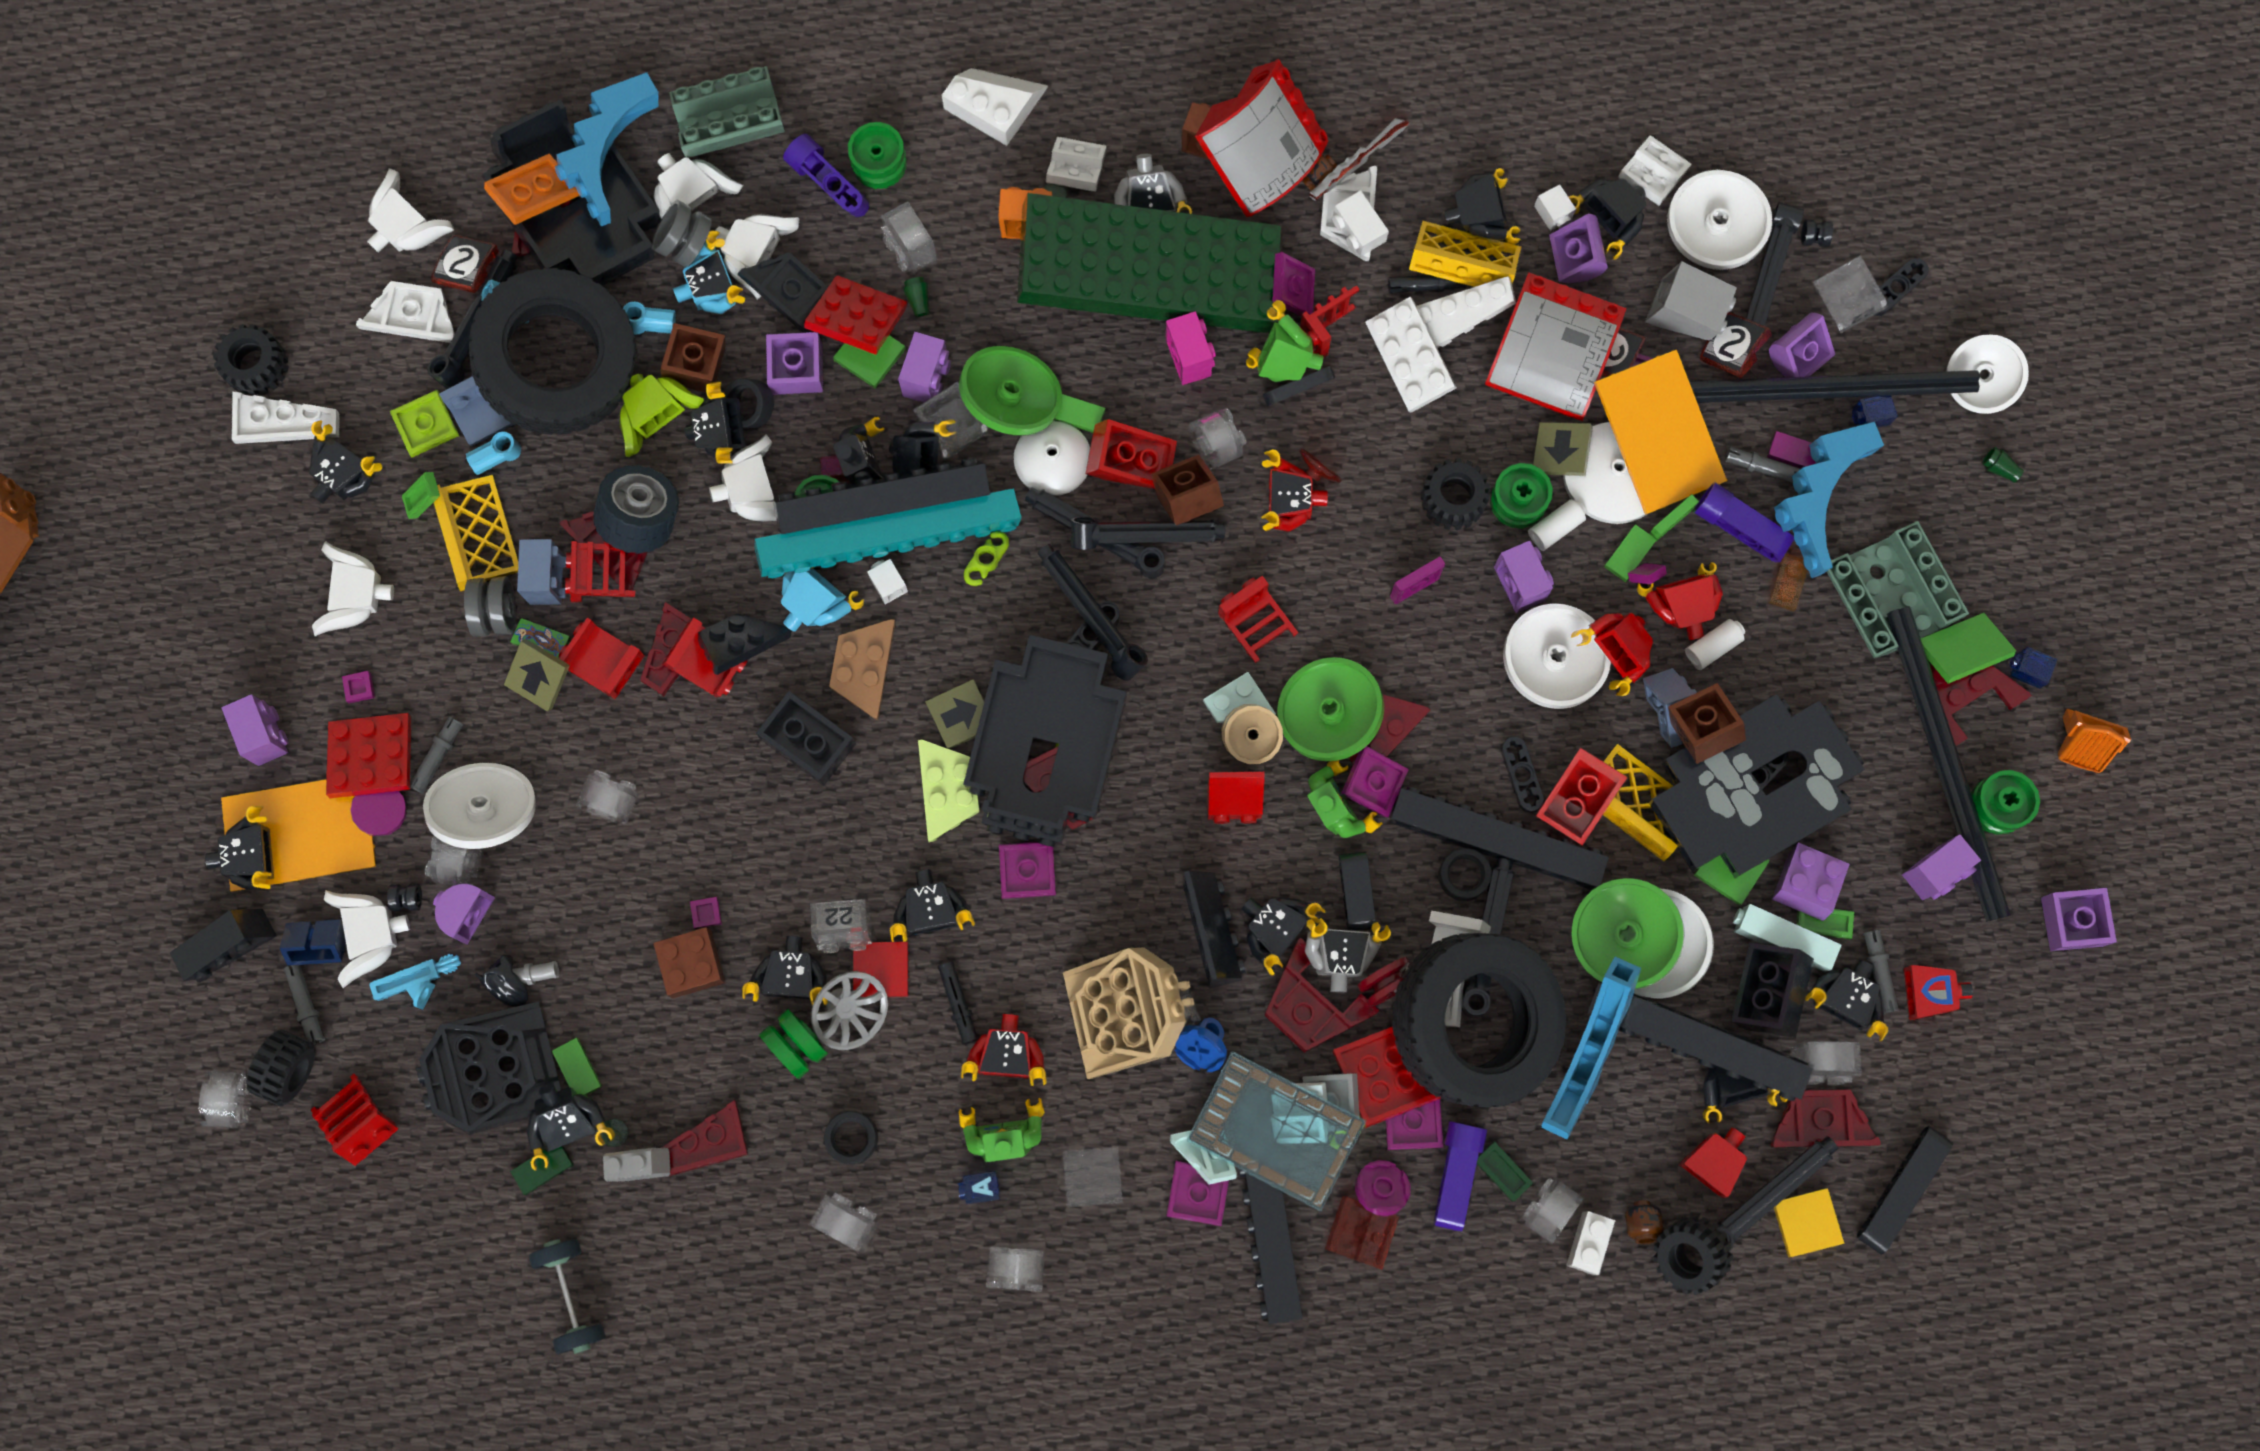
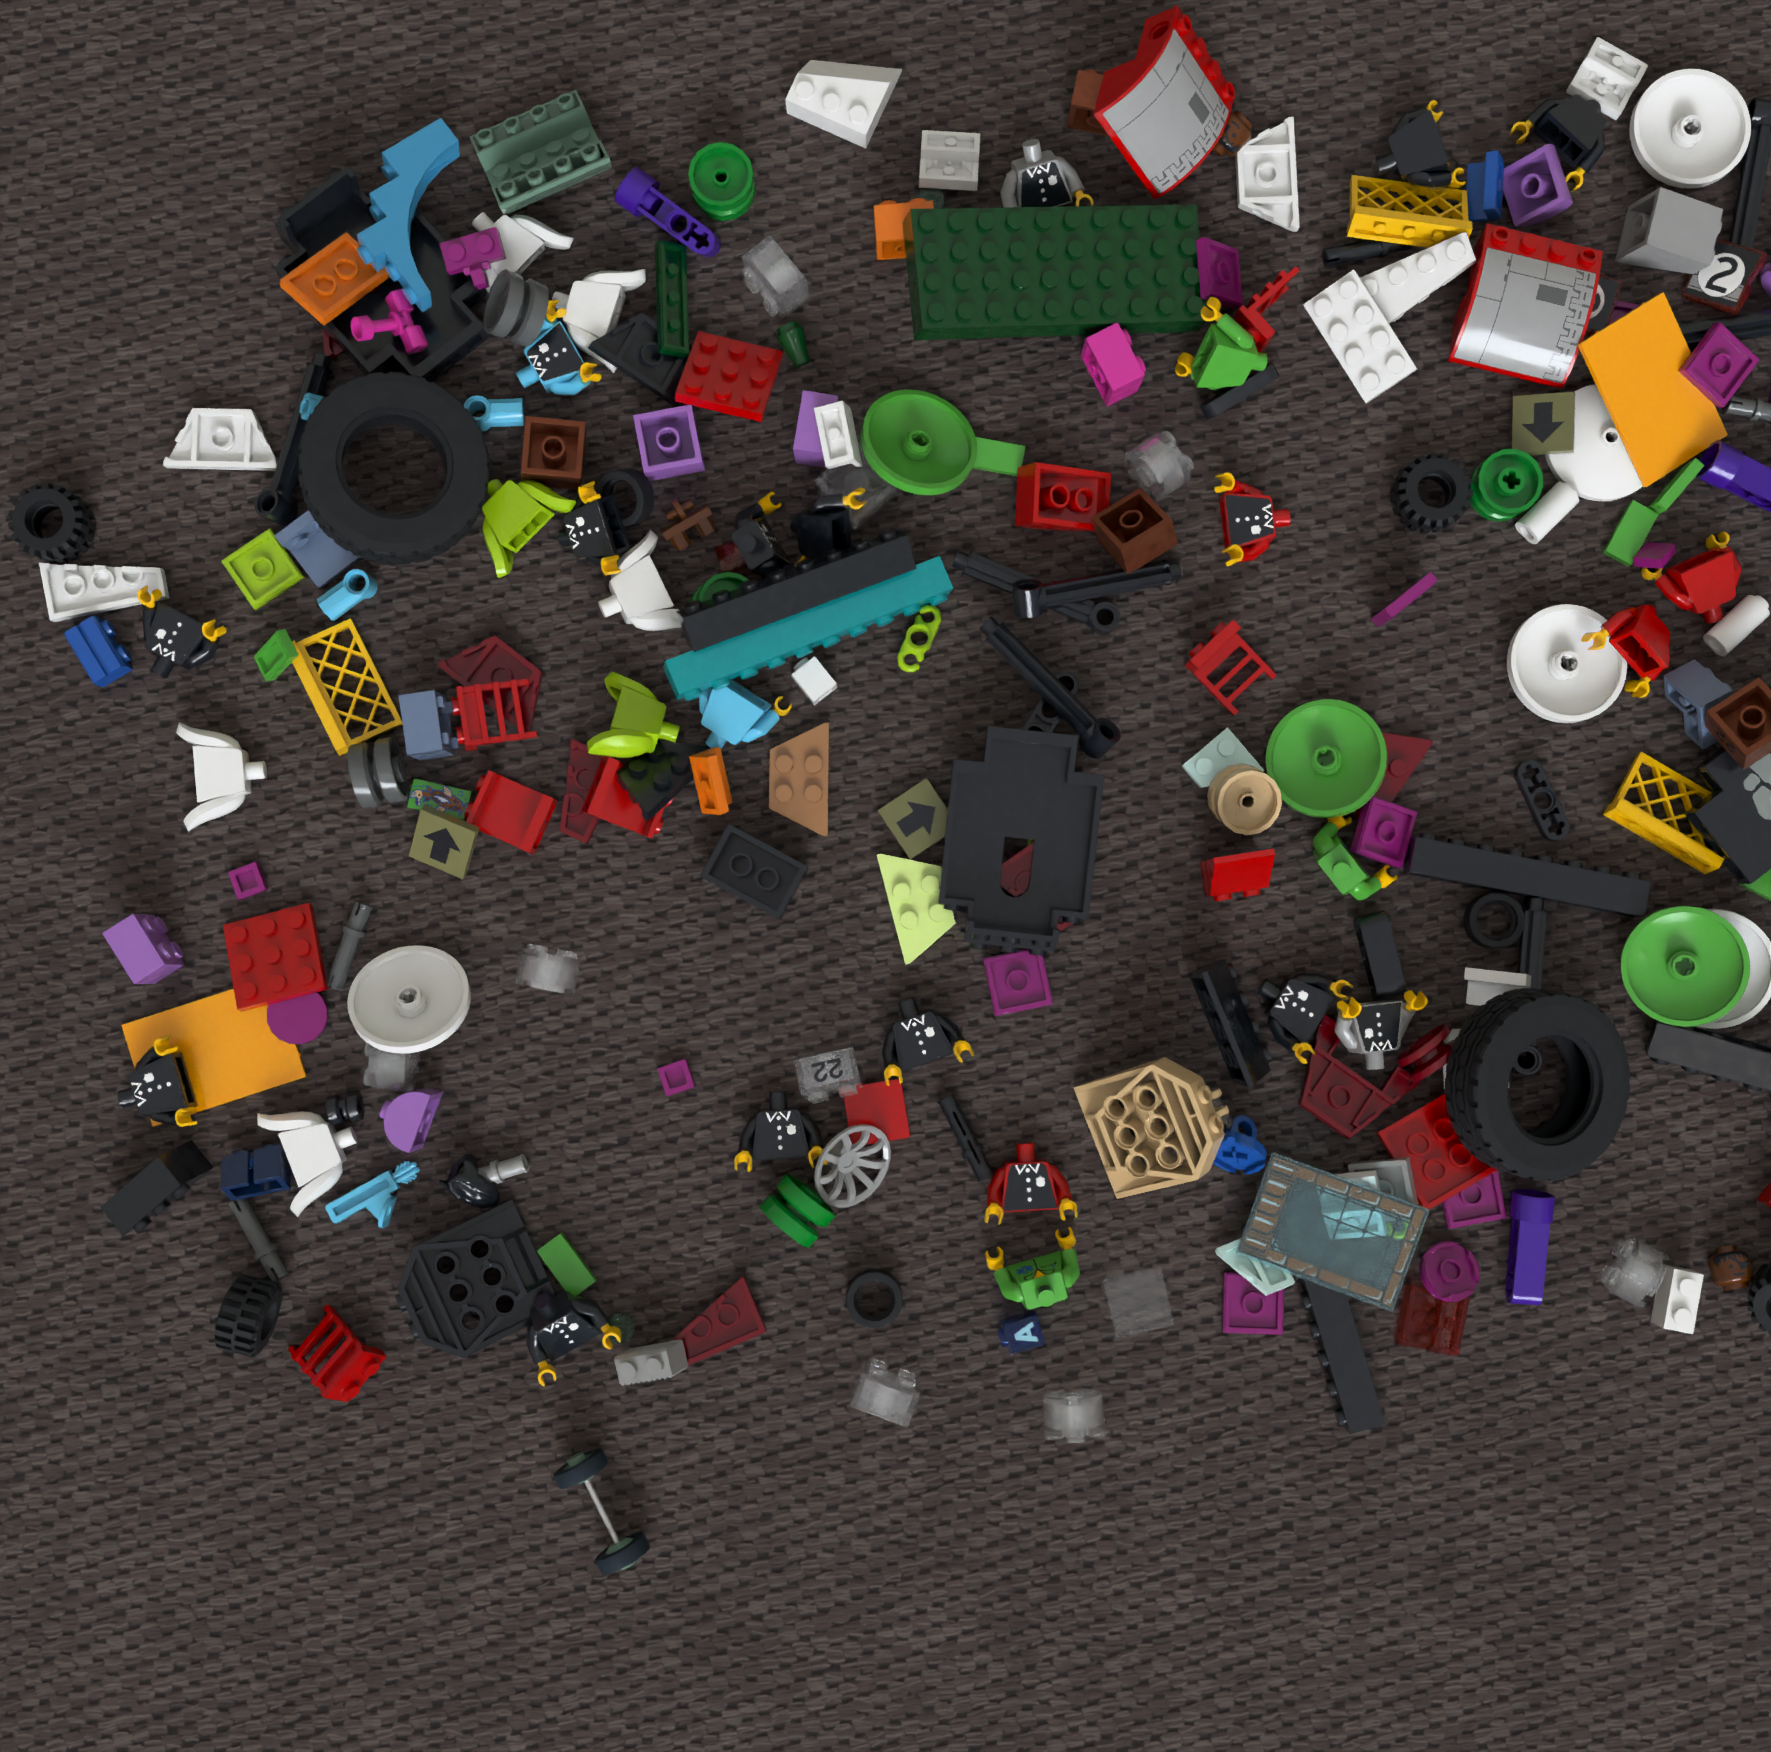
camera: 10 degrees left, 10 degrees up
(224, 1100) = (193, 1356): clear brick -> none
(269, 472) = (99, 651): none -> blue brick
(399, 221) = (187, 335): white torso -> none
(464, 263) = (272, 375): slope -> none
(529, 1179) = (534, 1392): dark green tile -> none
(579, 232) = (398, 323): none -> dark pink bar
(635, 509) = (521, 639): black wheel -> none
(654, 186) = (473, 255): none -> magenta hinge
(689, 963) = (668, 1136): copper brick -> none
(722, 593) = (635, 722): none -> lime torso
(781, 654) = (711, 781): none -> orange panel
(788, 440) = (699, 518): none -> reddish brown hips
(818, 245) = (672, 299): none -> dark green tile
(869, 366) = (752, 434): bright green tile -> none
(938, 372) = (837, 435): none -> white panel
(1054, 473) = (975, 531): white dish -> none
(1317, 469) = (1274, 486): clear red dish -> none
(1358, 158) = (1272, 111): light grey sword -> none
(1359, 223) = (1285, 189): white brick -> none
(1503, 1172) = (1575, 1235): dark green tile -> none
(1524, 576) = (1521, 579): medium lavender brick -> none
(1536, 246) = (1485, 188): none -> blue panel
(1555, 208) = (1503, 136): white brick -> none
(1581, 796) = (1615, 820): red slope -> none
(1594, 1047) = (1663, 1092): dark azure arch -> none
(1721, 418) = (1718, 365): none -> magenta tile

